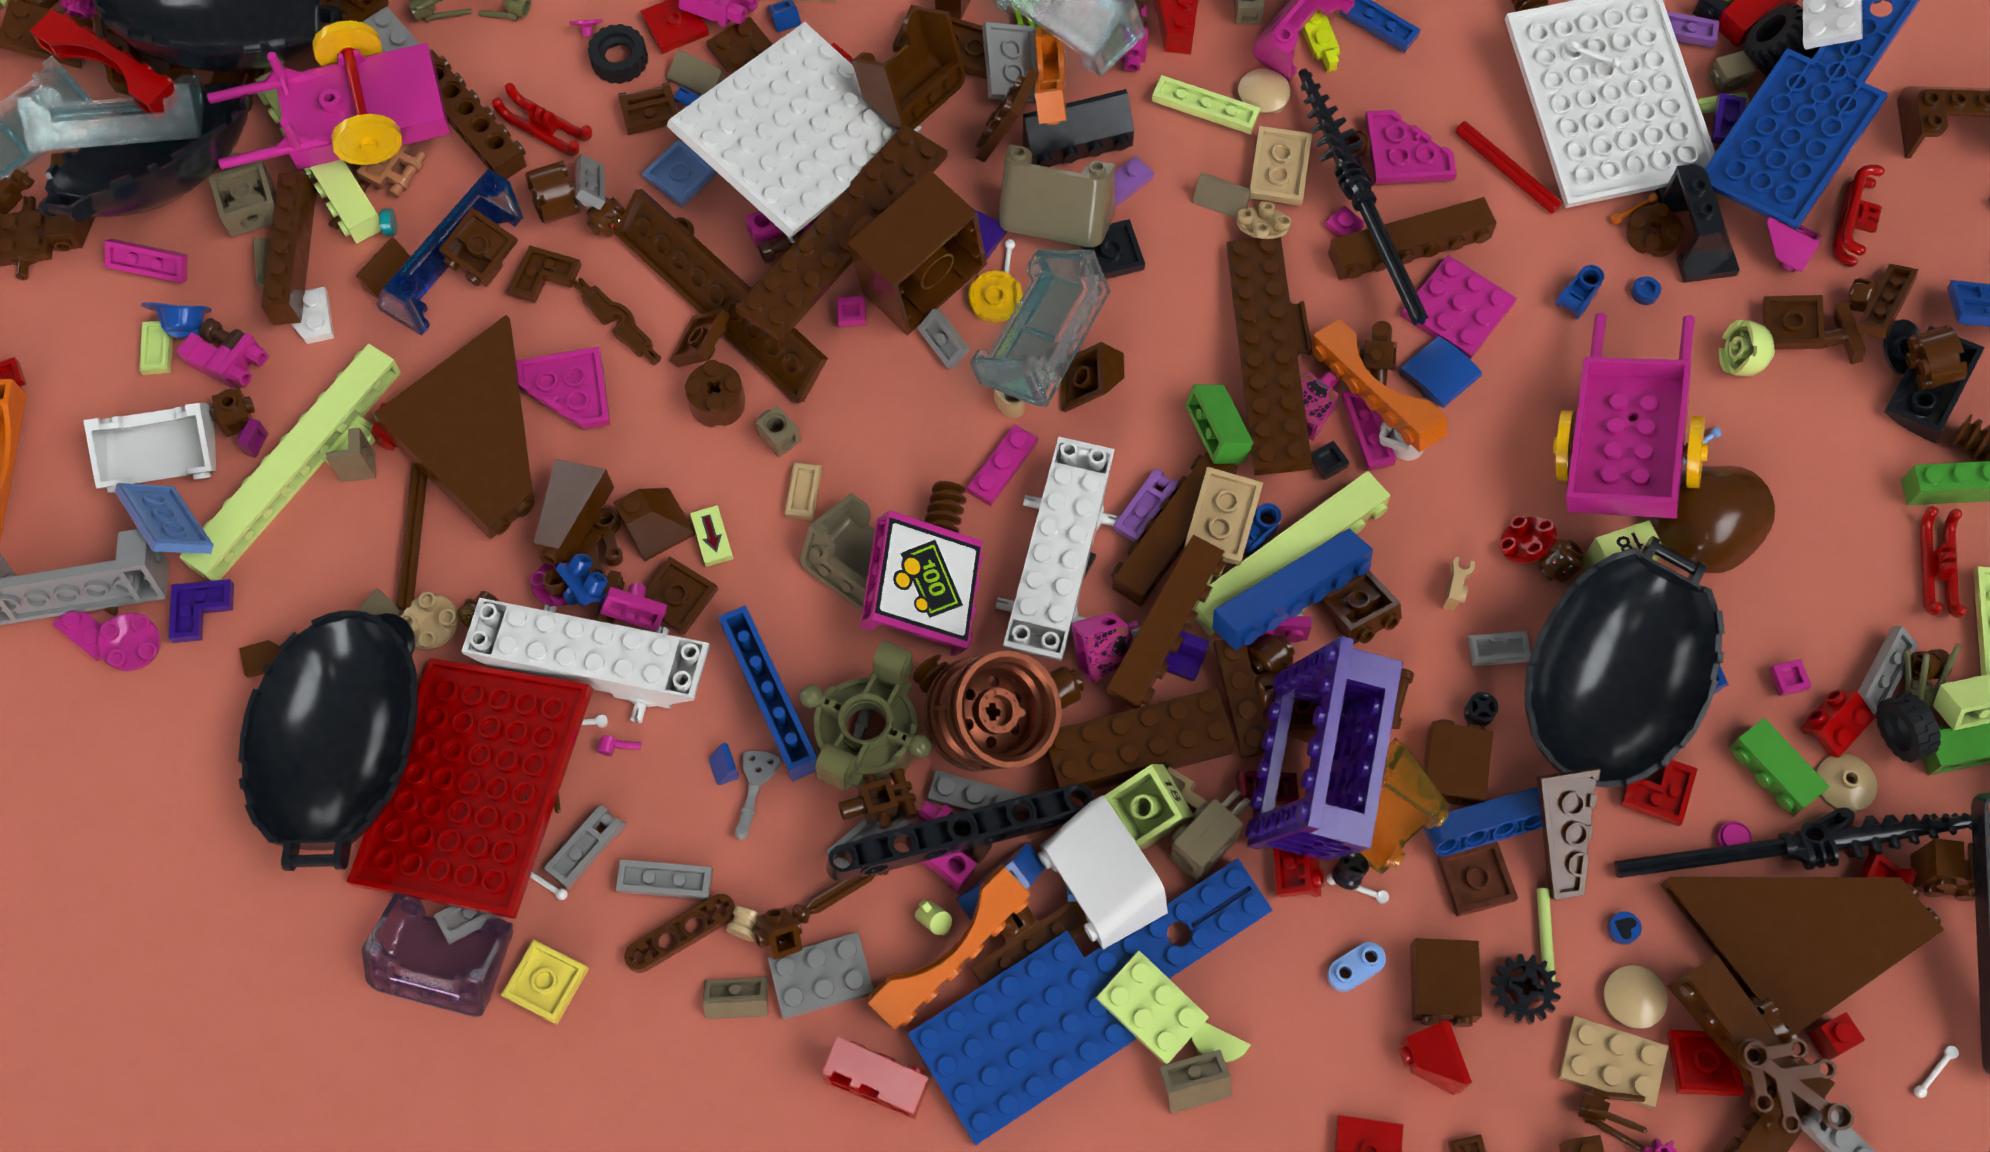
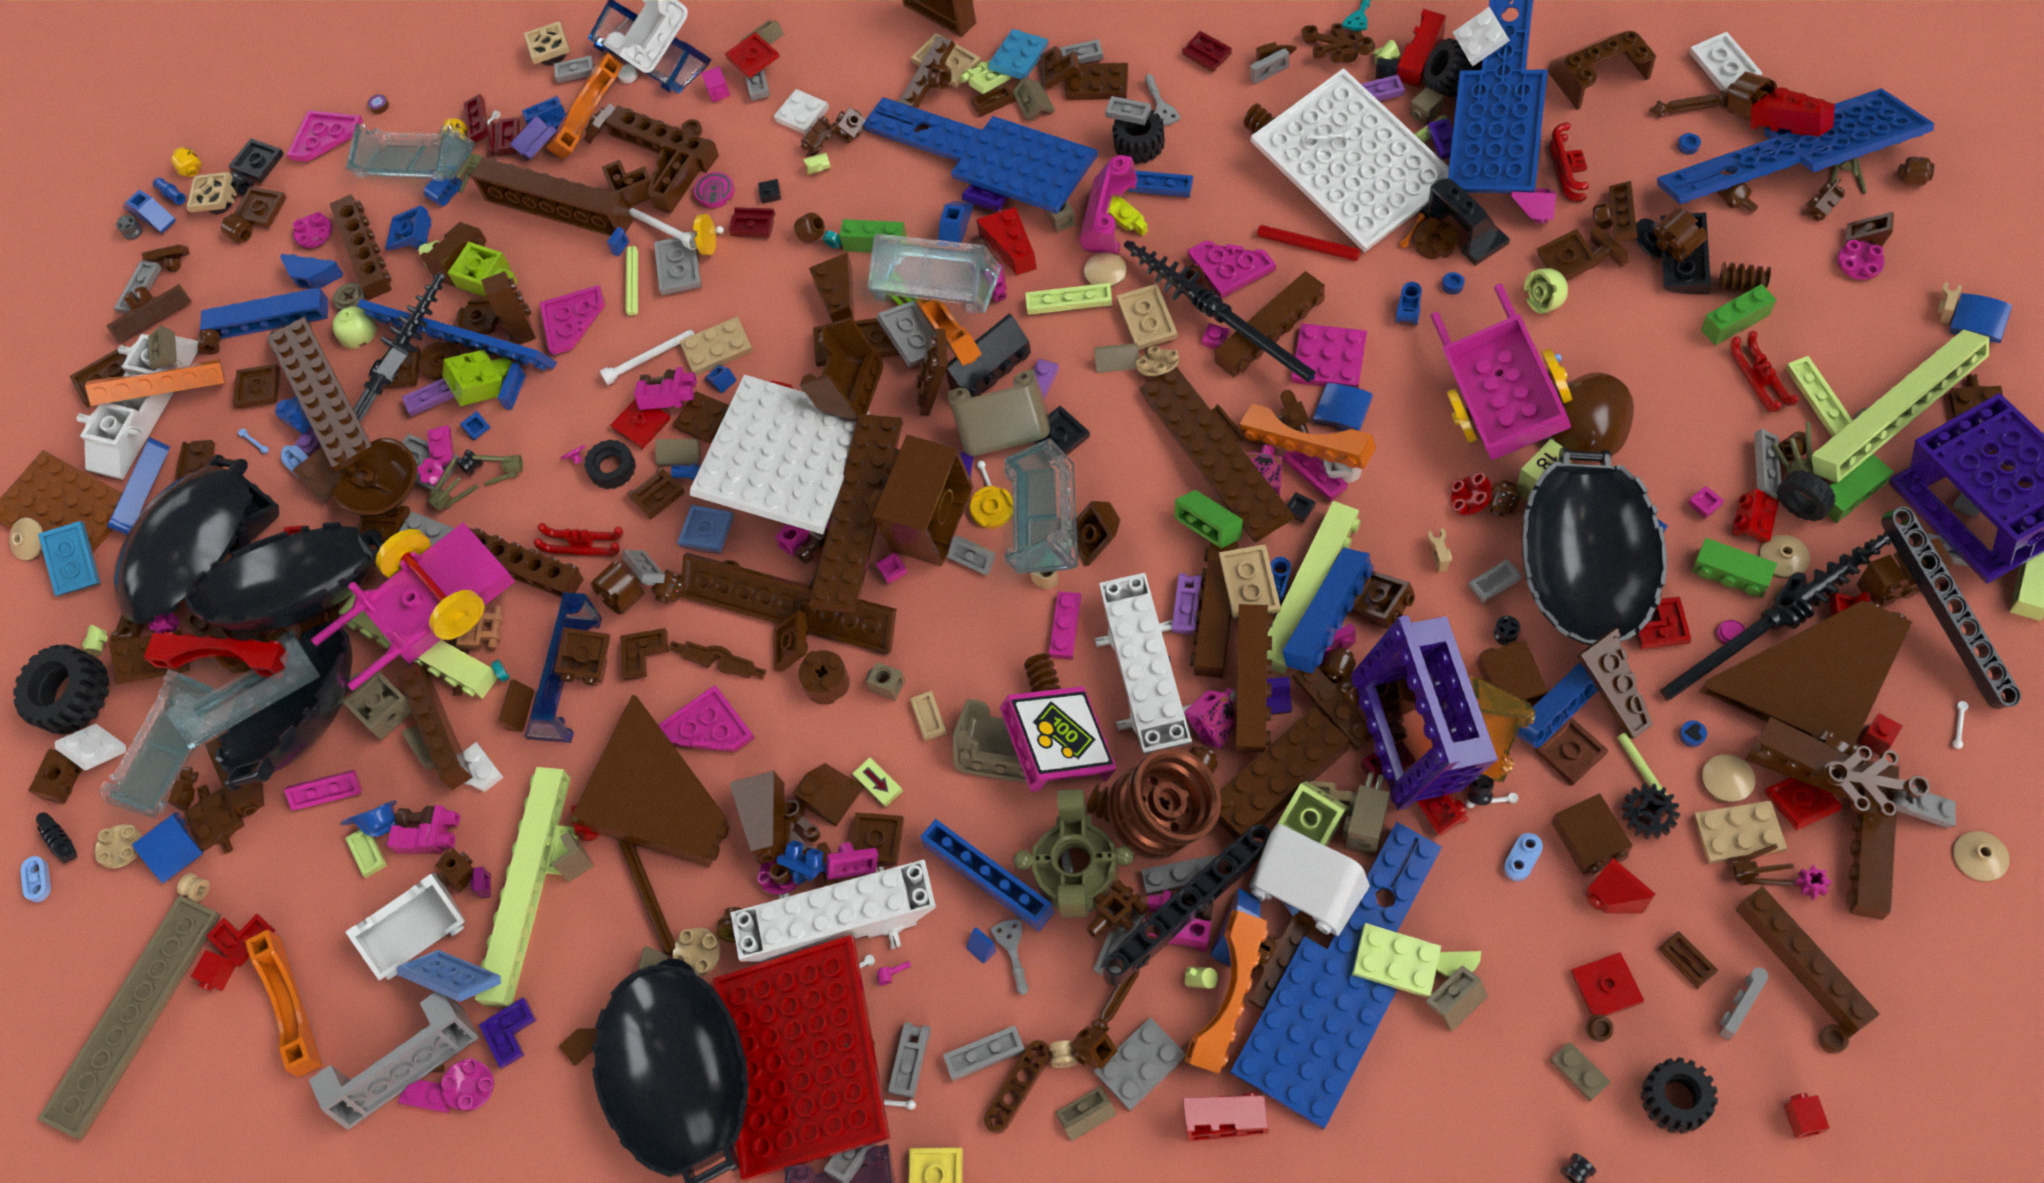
camera: 15 degrees left, 5 degrees down
(1295, 752) = (1395, 720): none -> reddish brown wheel

